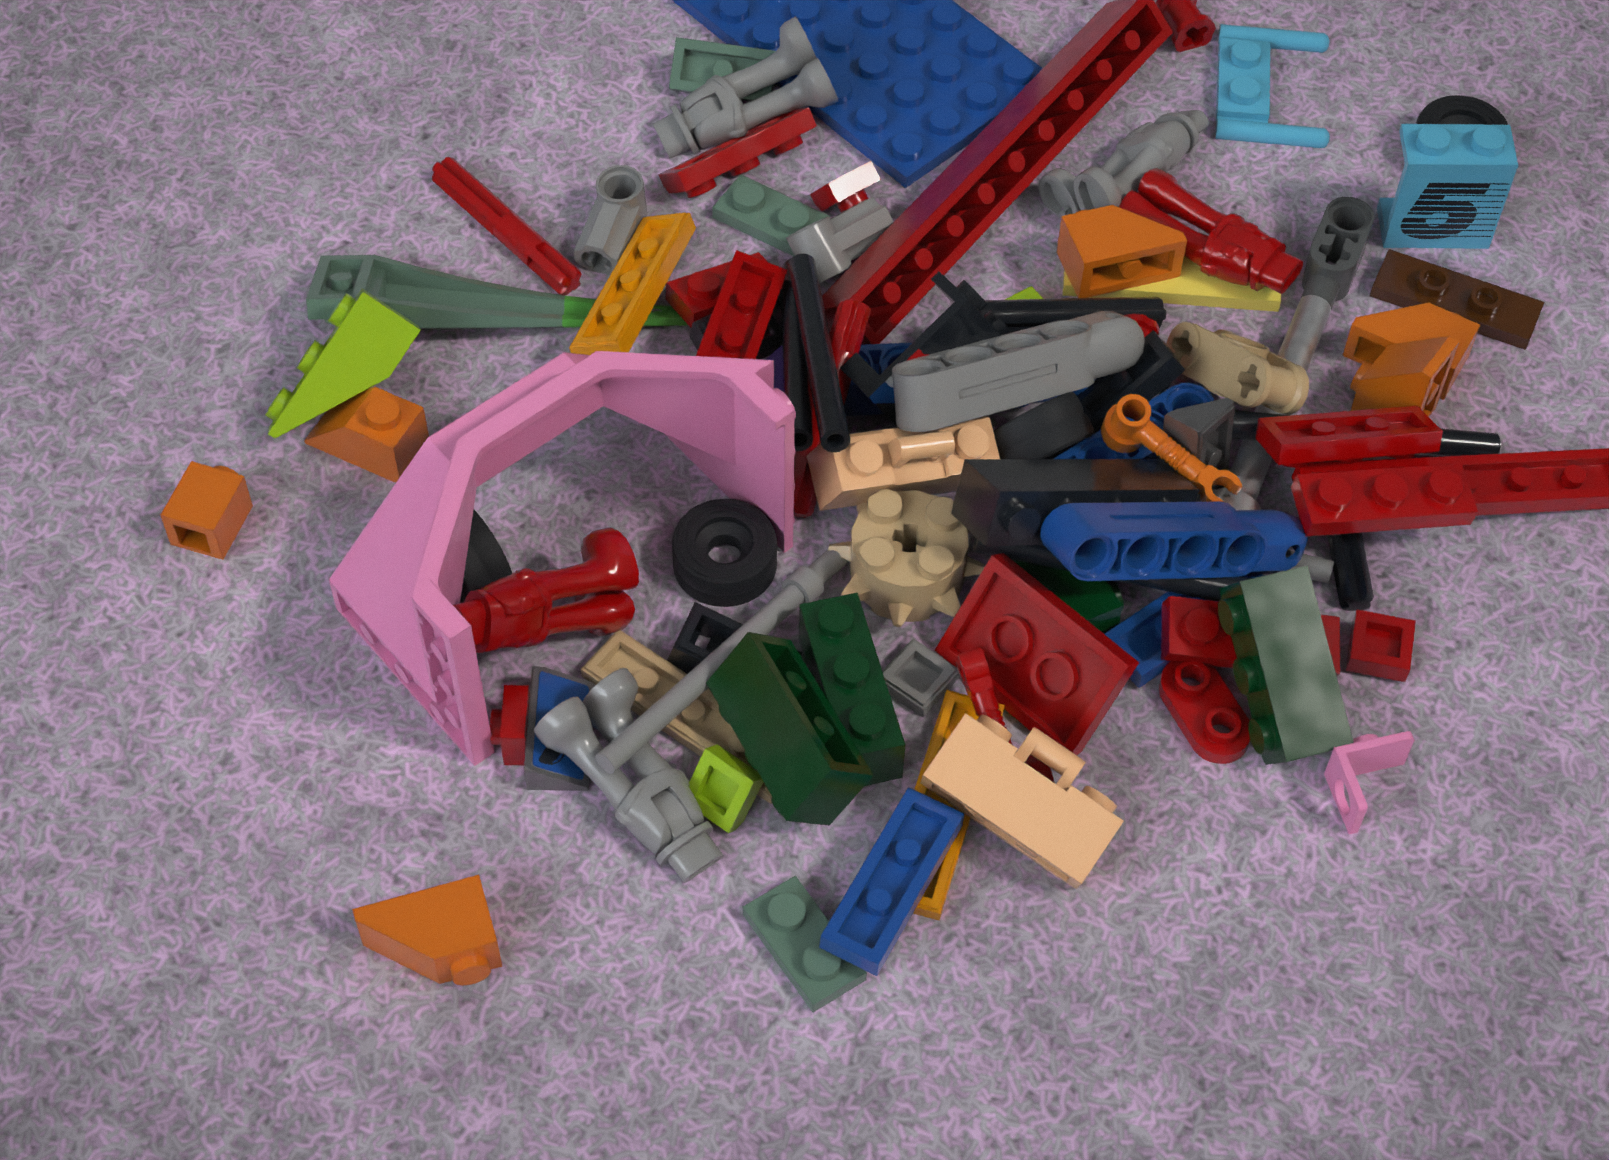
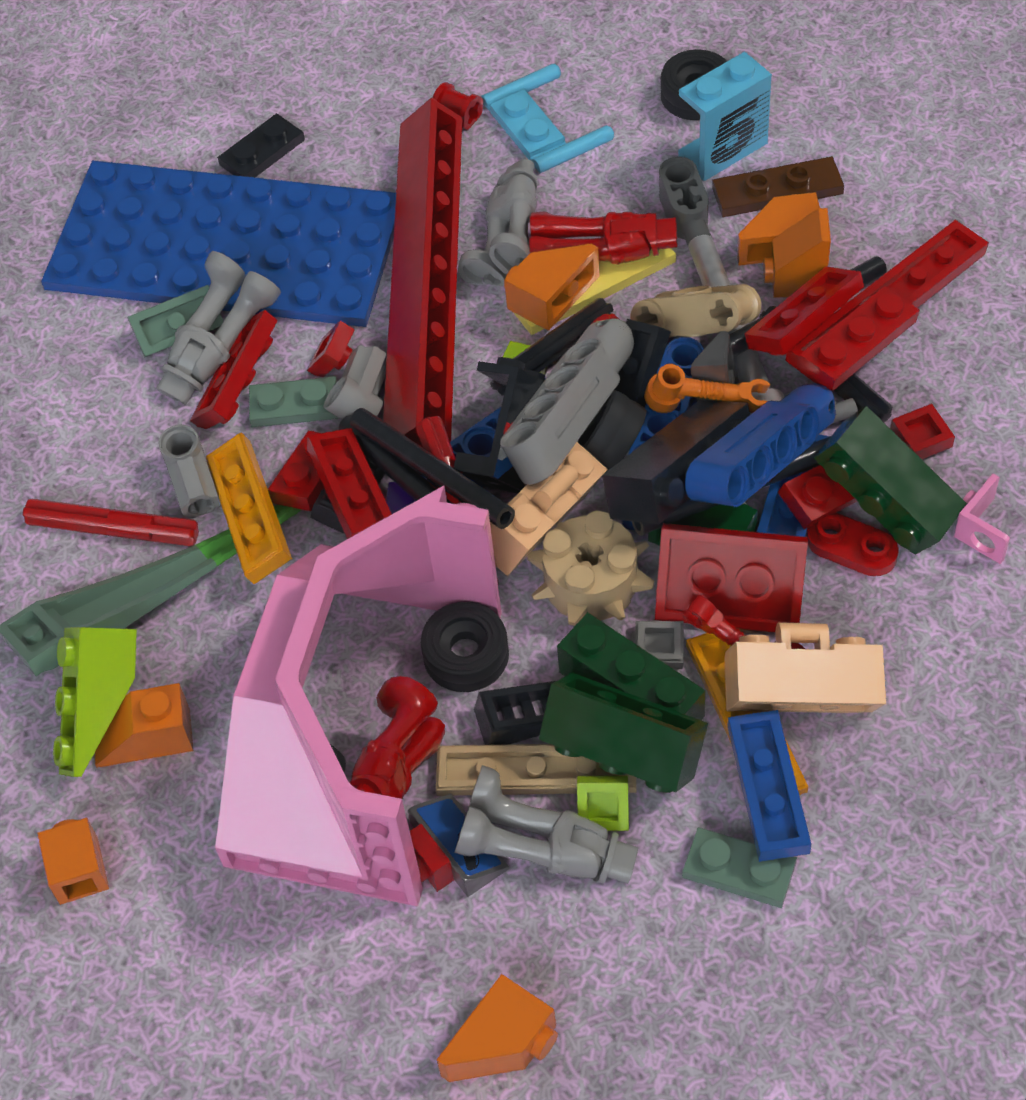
camera: 30 degrees left, 0 degrees up
(798, 588) = (537, 638): light grey bar -> none

